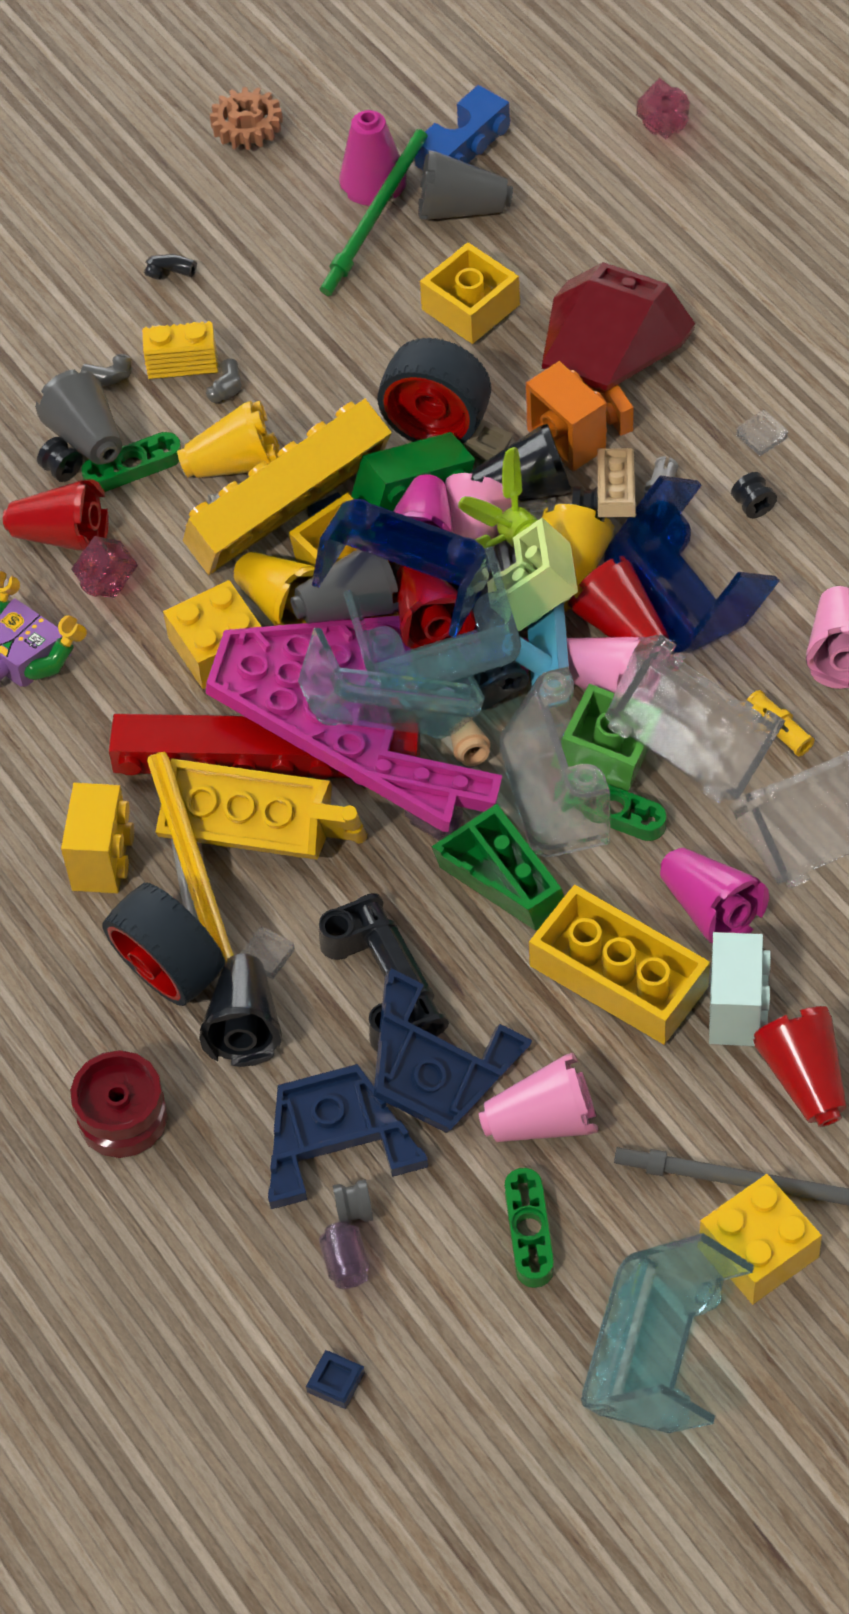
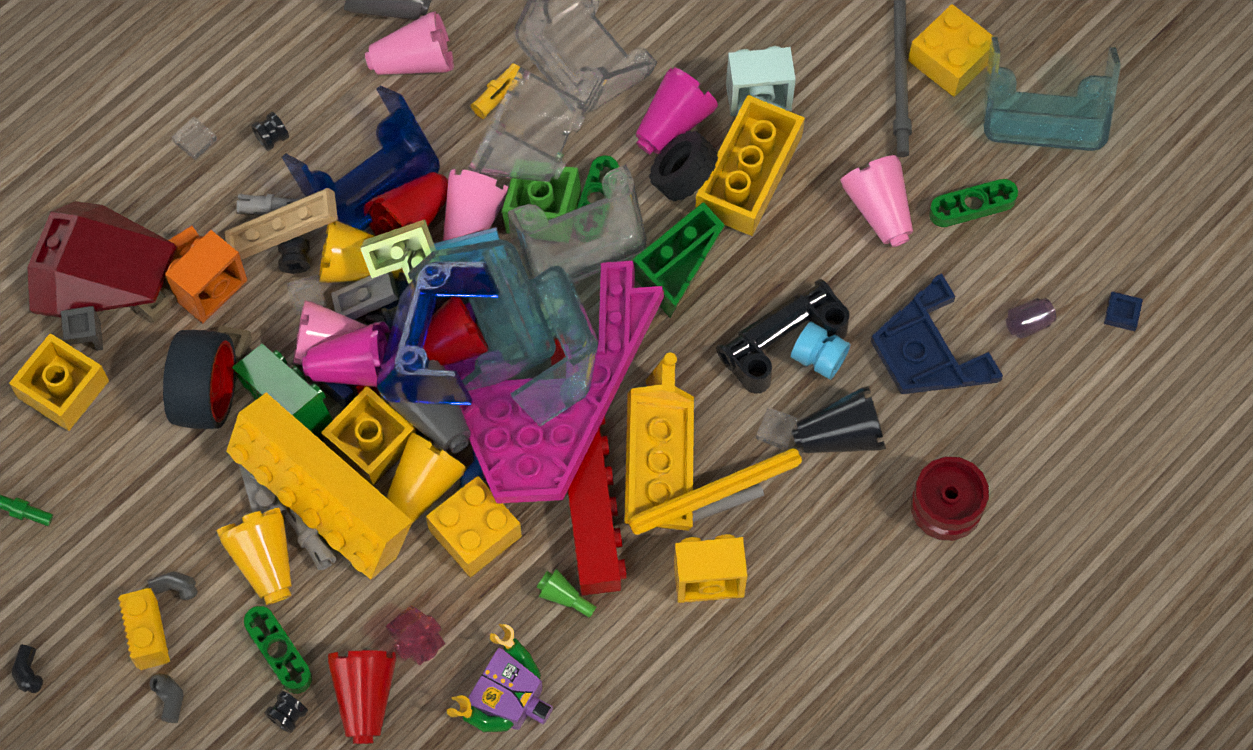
camera: 105 degrees left, 10 degrees up
(80, 415) = (250, 687): dark grey cone -> none
(125, 701) = (558, 590): none -> bright green cone
(163, 943) = (811, 484): black wheel -> none
(344, 1007) = (820, 350): none -> medium azure wheel
(353, 1202) = (987, 319): dark grey wheel -> none
(427, 1073) = (871, 282): dark blue wing -> none
(510, 521) = (341, 291): lime plant -> none
(529, 317) = (82, 326): none -> dark grey panel
(539, 463) = (267, 304): black cone -> none
(624, 884) = (683, 165): none -> black tyre
(806, 1062) = (808, 32): red cone -> none

